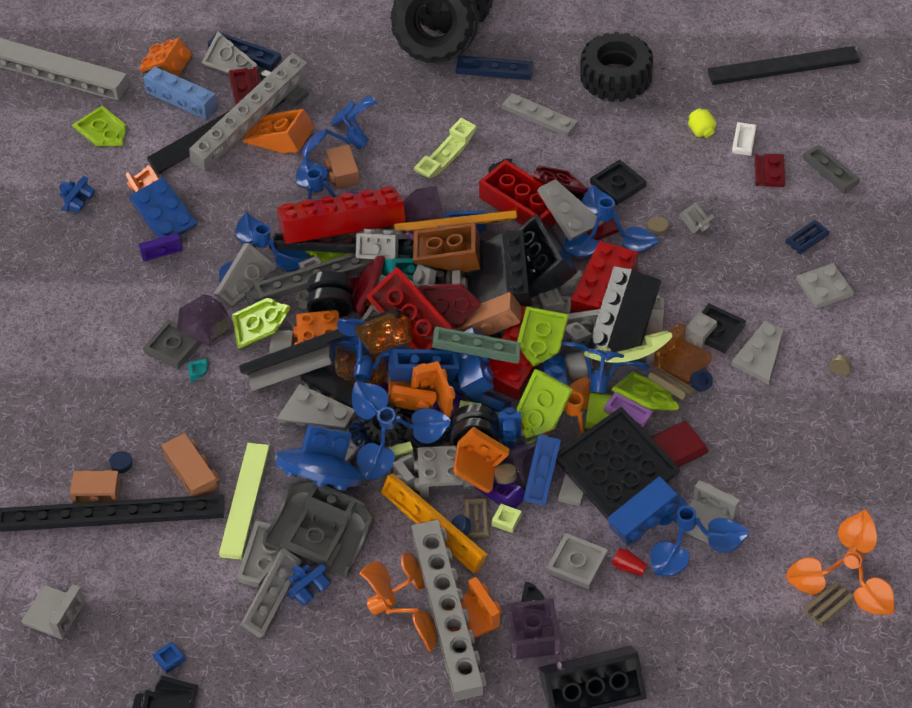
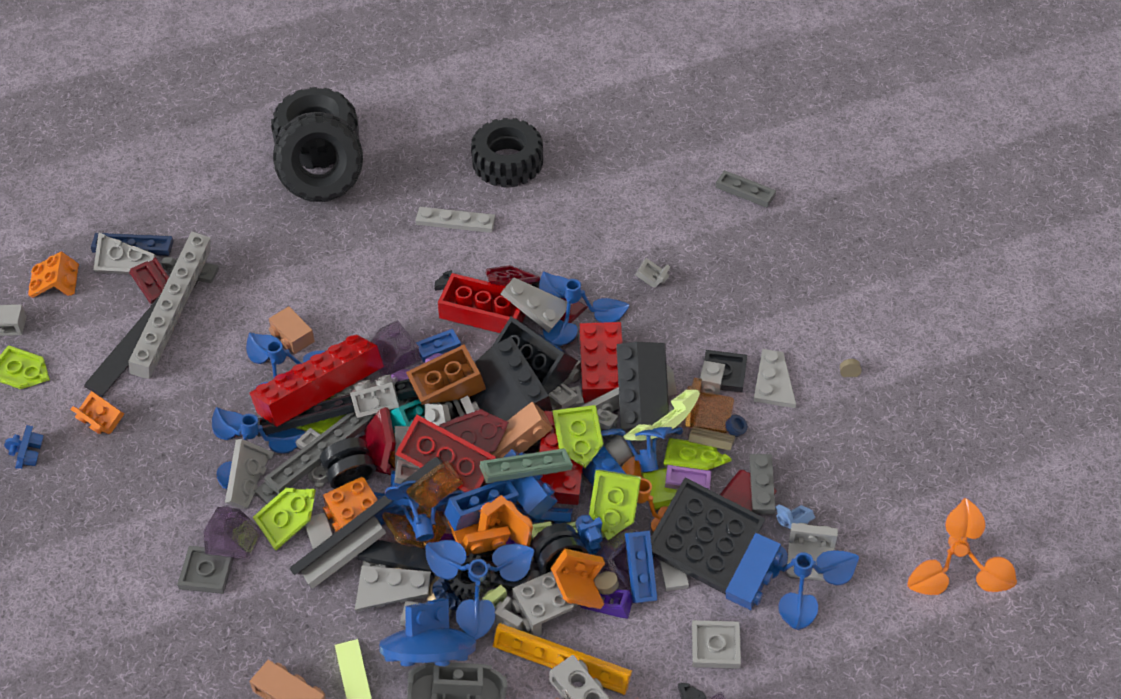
camera: 25 degrees left, 0 degrees up
(160, 247) = (143, 473): dark purple plate -> none
(162, 209) = (128, 434): blue plate -> none
(180, 93) = (87, 306): medium blue brick -> none
(197, 368) = (243, 586): teal tile -> none
(281, 131) = (210, 314): orange slope -> none
(355, 135) = (288, 295): blue plant -> none
(452, 147) = (386, 280): yellowish green slope -> none
(462, 523) = (590, 648): dark blue tile -> none
(477, 534) = (607, 653): dark tan tile -> none
(478, 219) = (433, 349): light orange tile -> none
(494, 67) = (390, 187): dark blue plate -> none
(506, 518) = (628, 627): yellowish green plate -> none
(618, 181) = (562, 260): black plate -> none
(628, 562) = (763, 627): red cone -> none
(658, 226) = (619, 291): dark tan tile -> none
(695, 439) = (762, 484): none -> dark grey plate
(702, 123) = (610, 182): neon yellow head -> none
(717, 479) = (798, 515): none -> medium blue bracket
(744, 138) = (654, 185): white tile -> none
(769, 170) = (692, 207): dark red plate -> none
(783, 65) = (652, 107): black tile -> none
(800, 249) = (752, 269): dark blue tile -> none
(824, 285) = (796, 298): light grey plate -> none
(841, 592) = (963, 582): dark tan tile -> none

